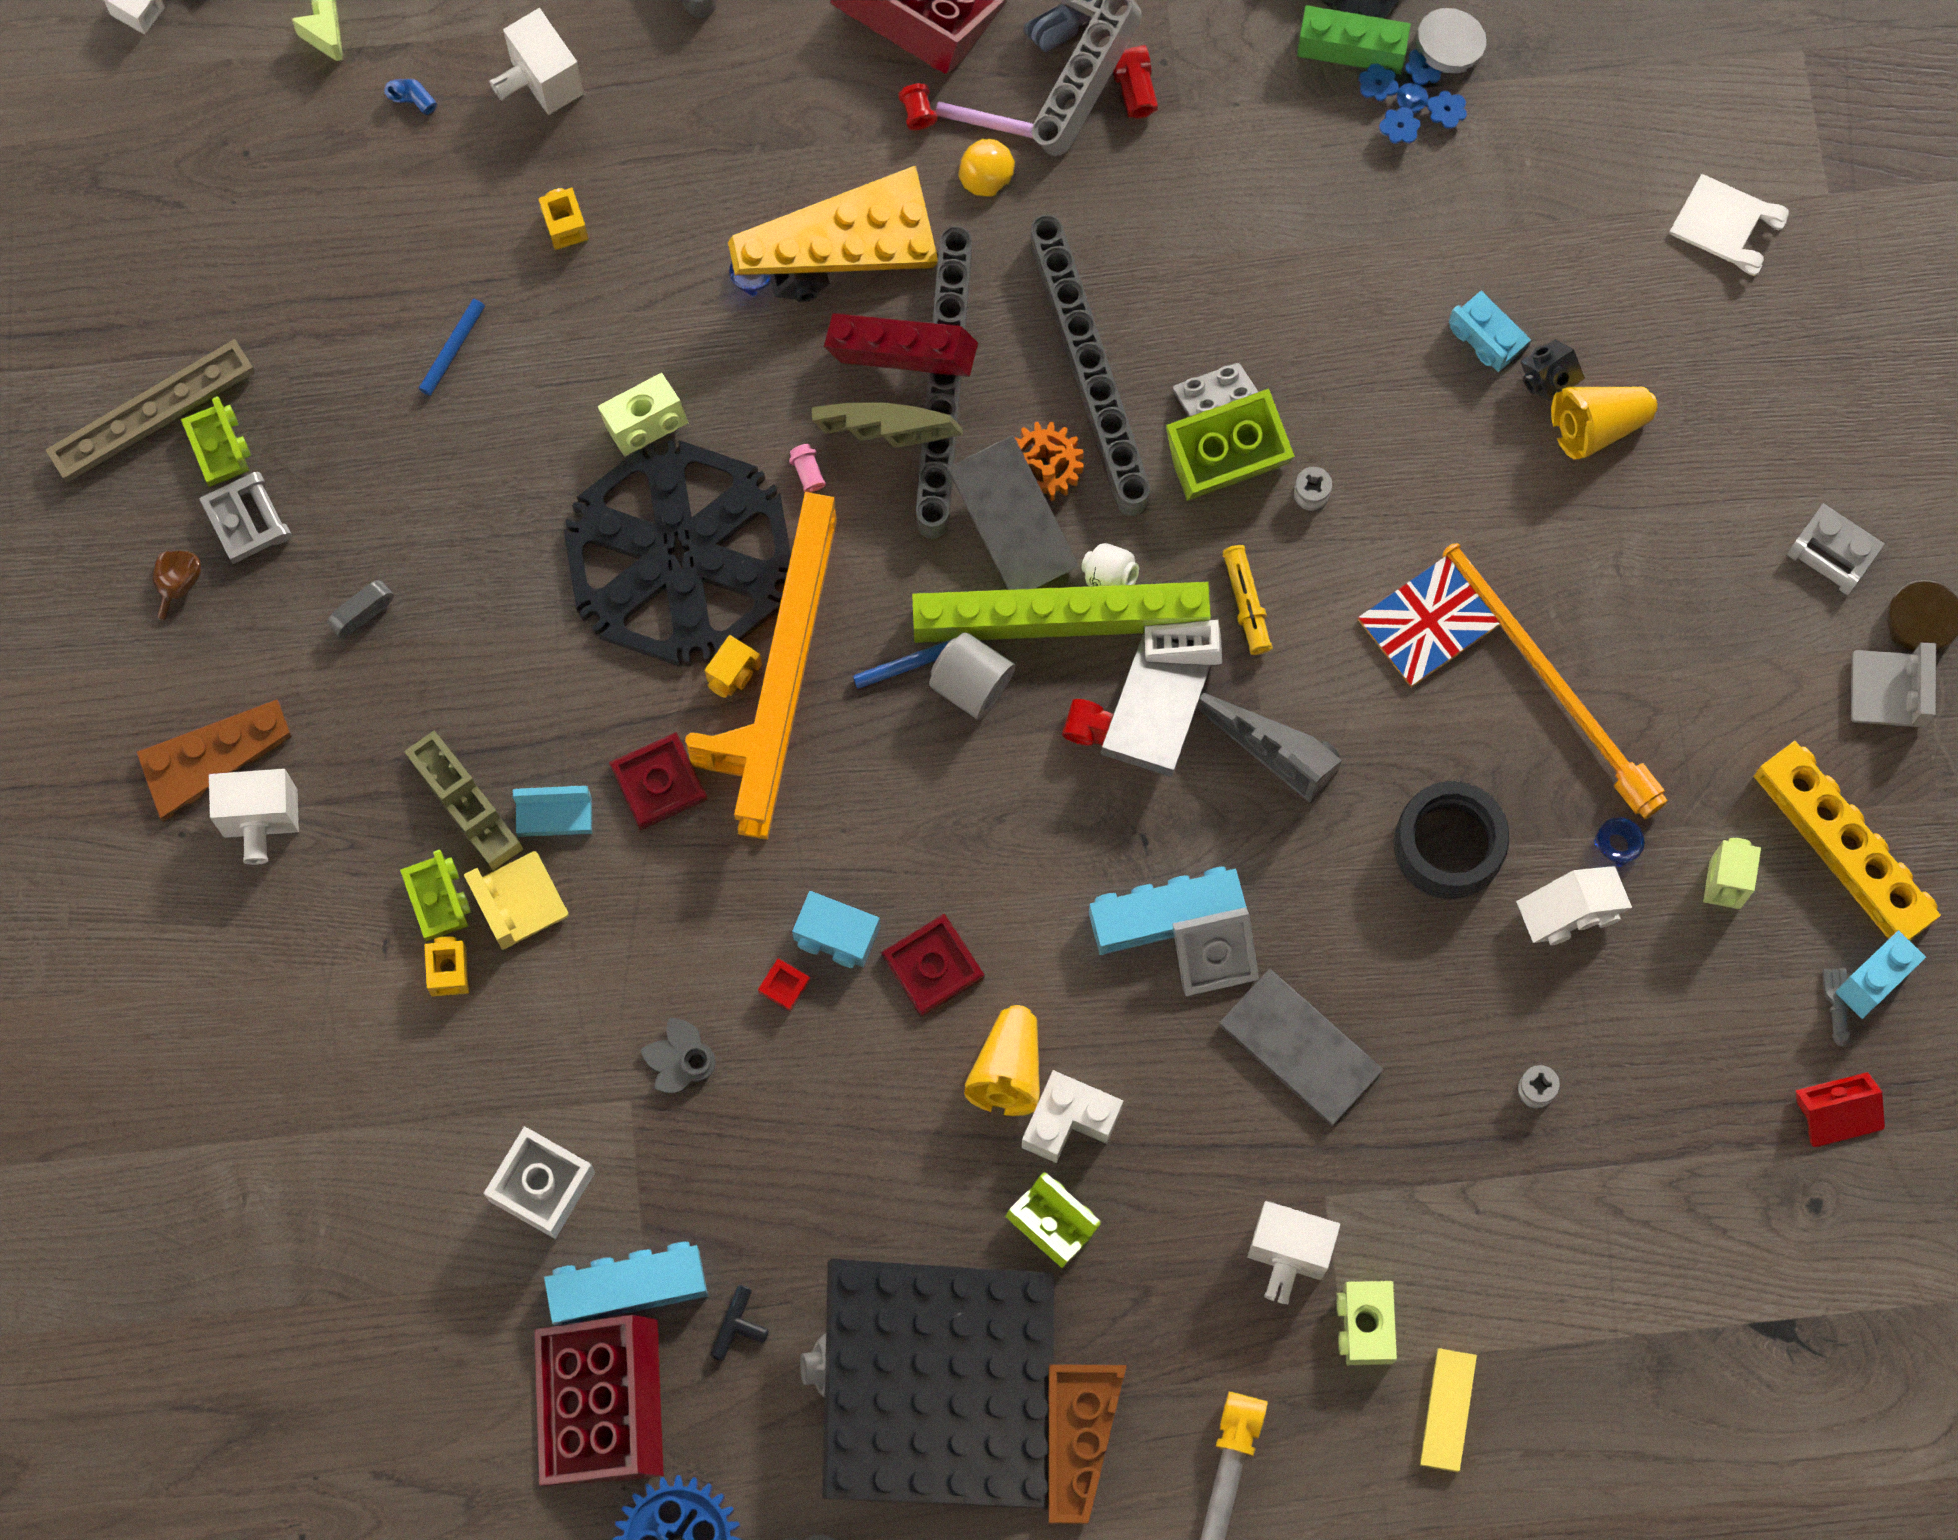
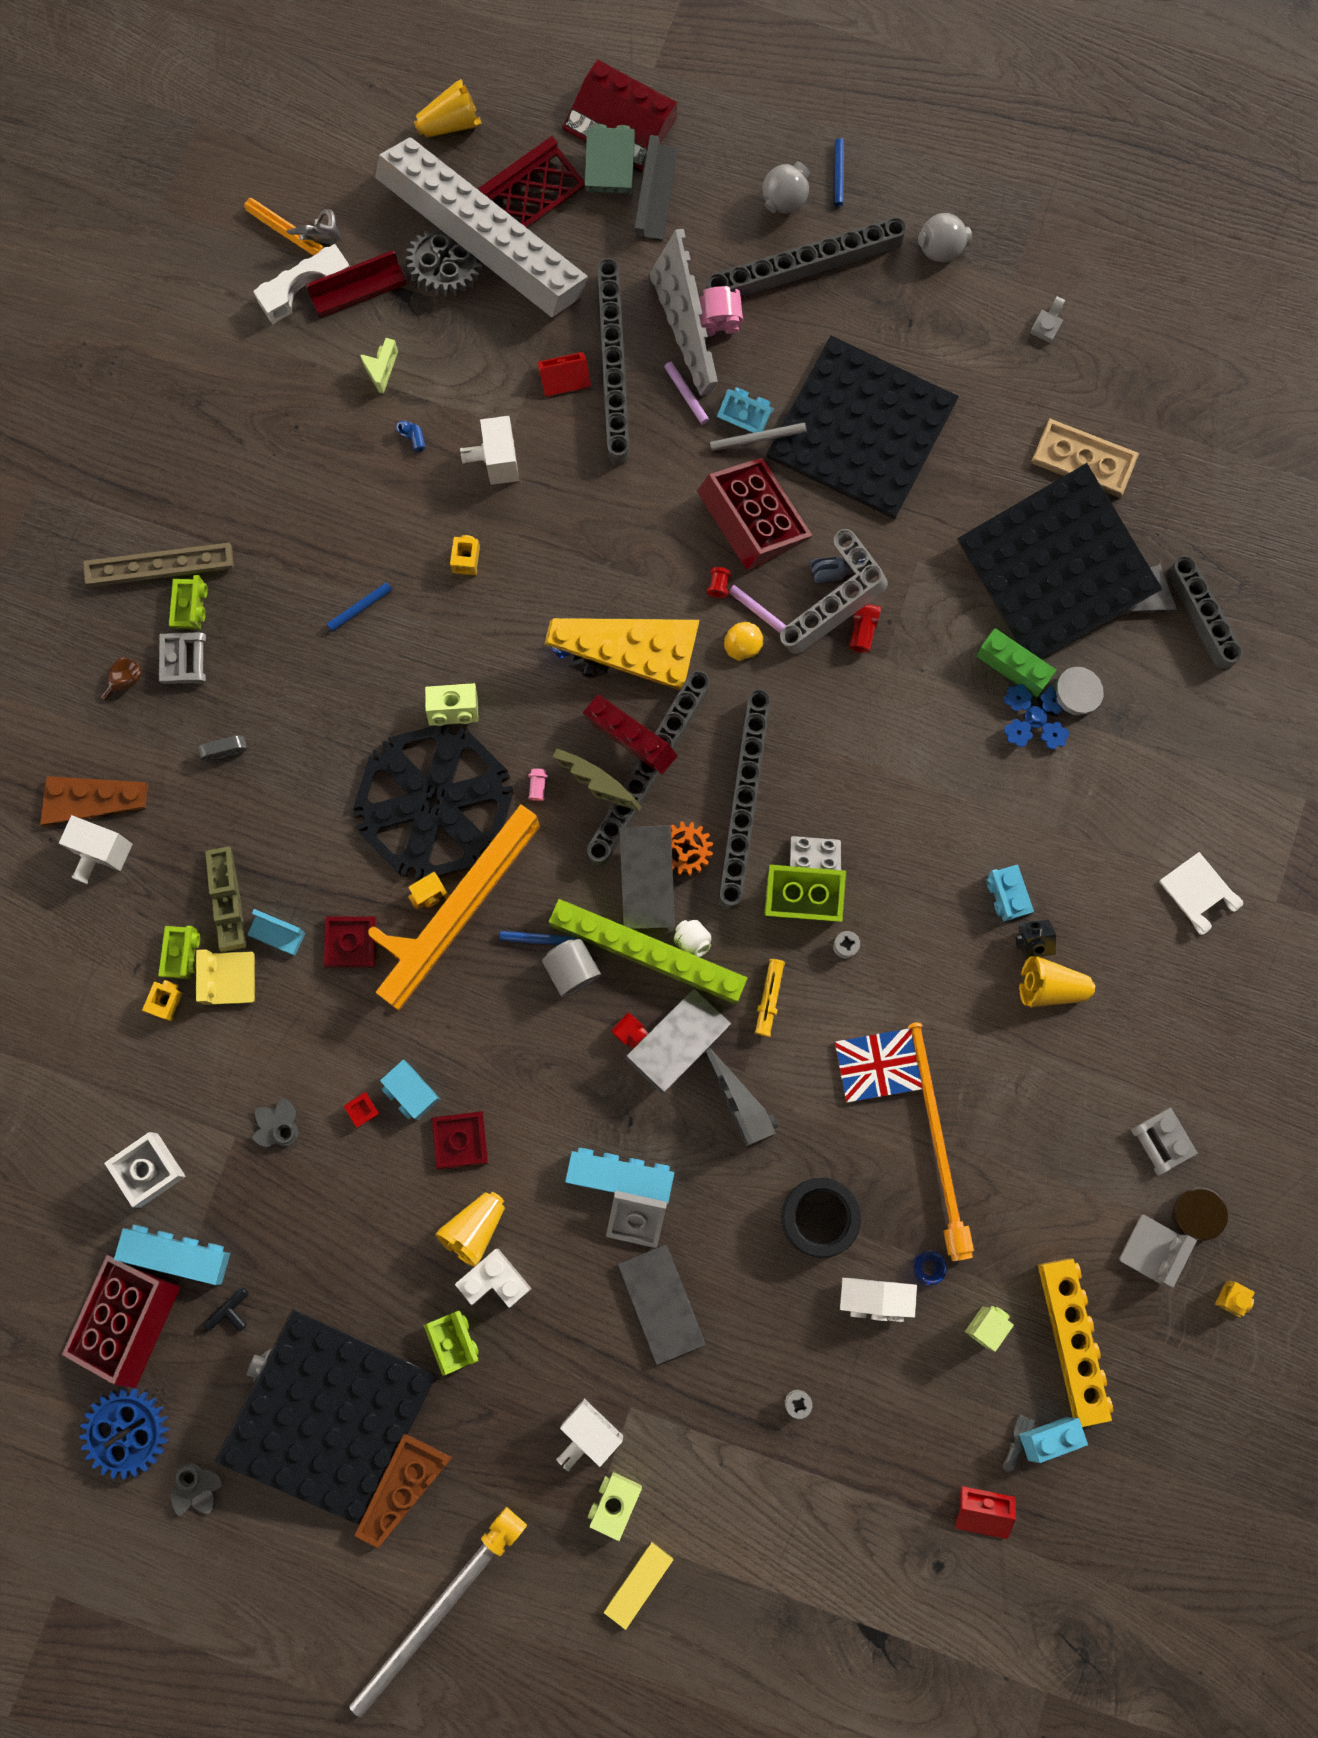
camera: 25 degrees right, 5 degrees up
(1196, 654) = (711, 1016): white slope -> none

